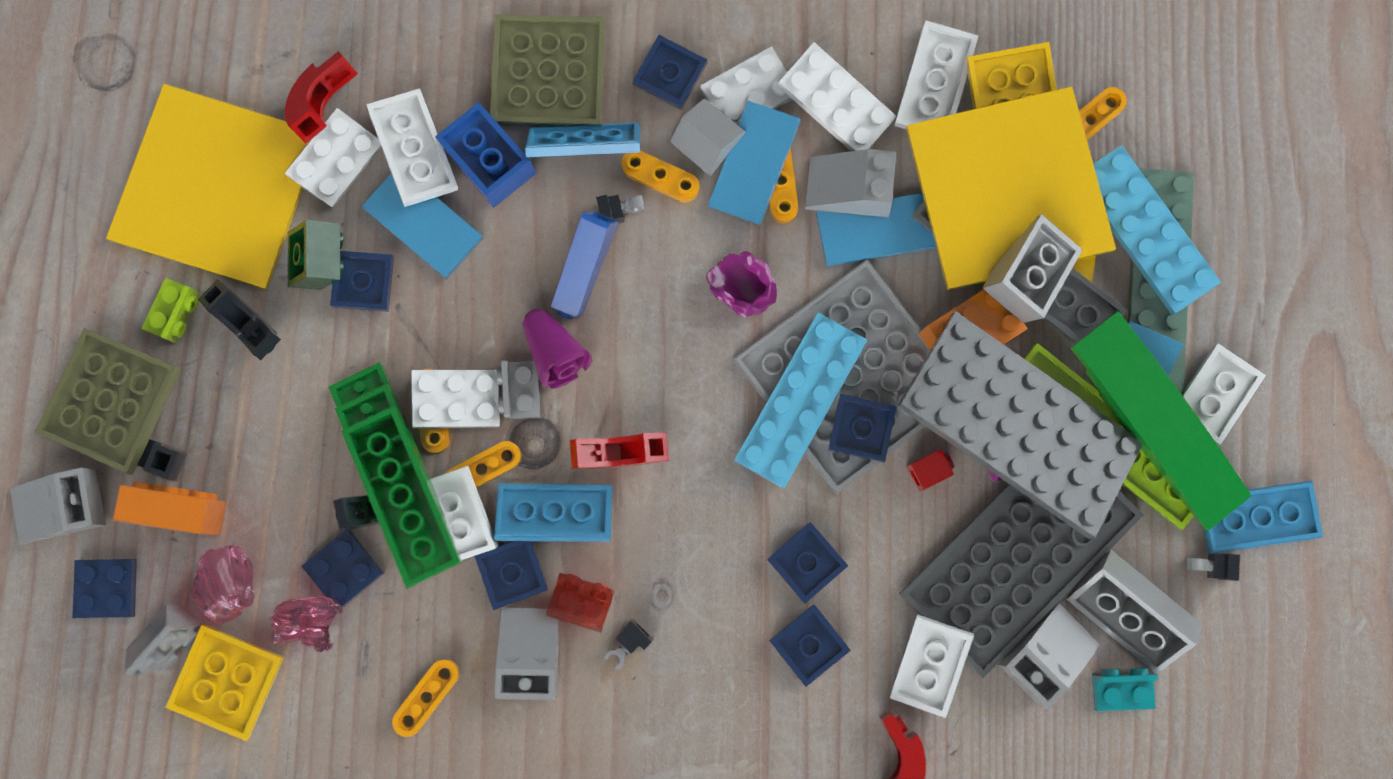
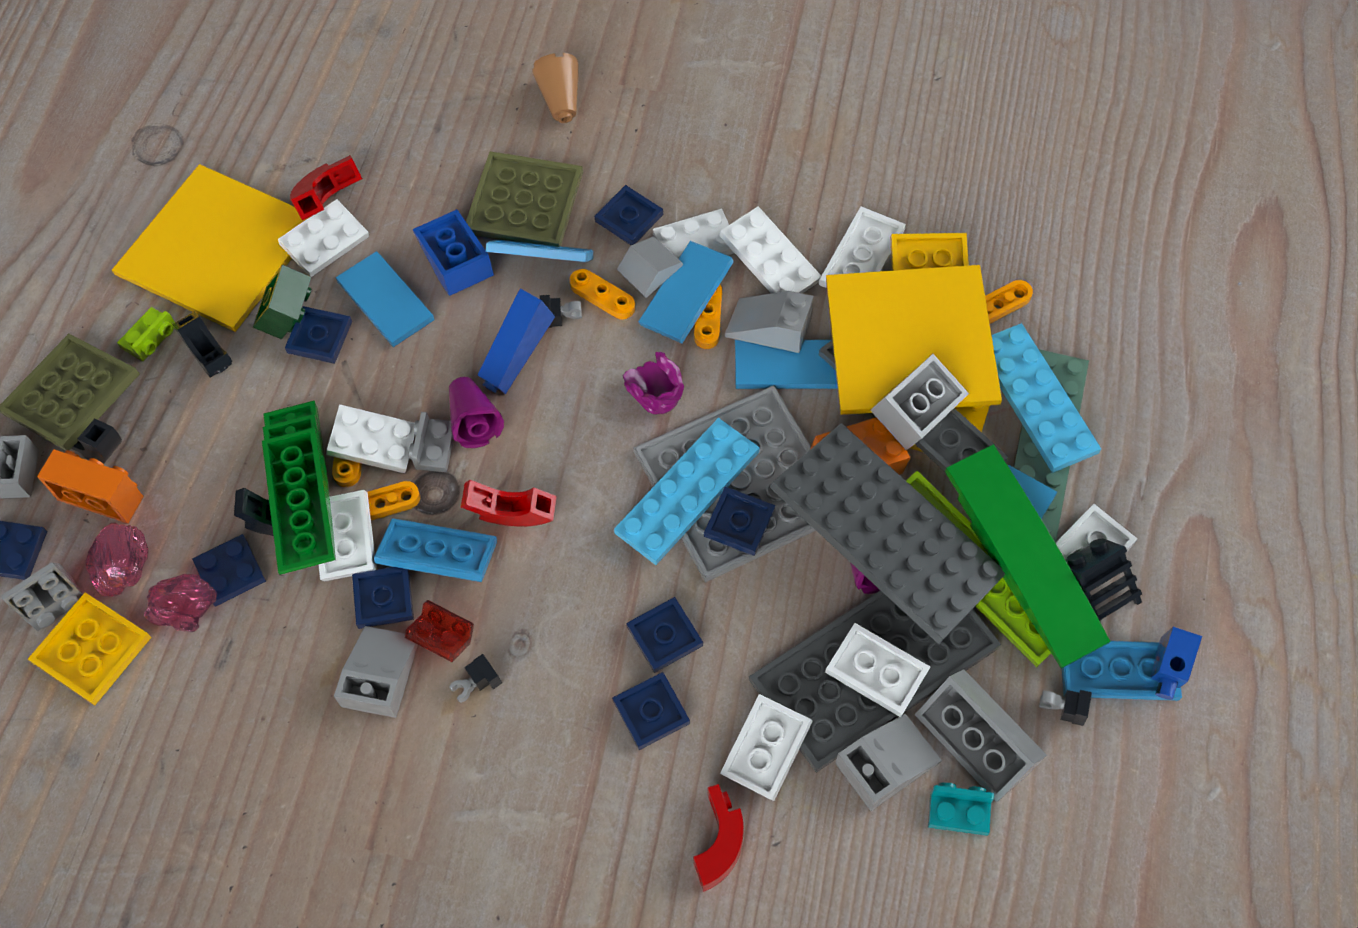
camera: 15 degrees right, 20 degrees down
(411, 147) = (391, 239): white plate -> none
(414, 703) = (258, 699): light orange plate -> none
(931, 469) = (799, 570): red brick -> none
(1028, 568) = (877, 669): none -> white plate
(1237, 425) = (1099, 564): none -> black plate
(1318, 510) = (1175, 650): none -> blue torso

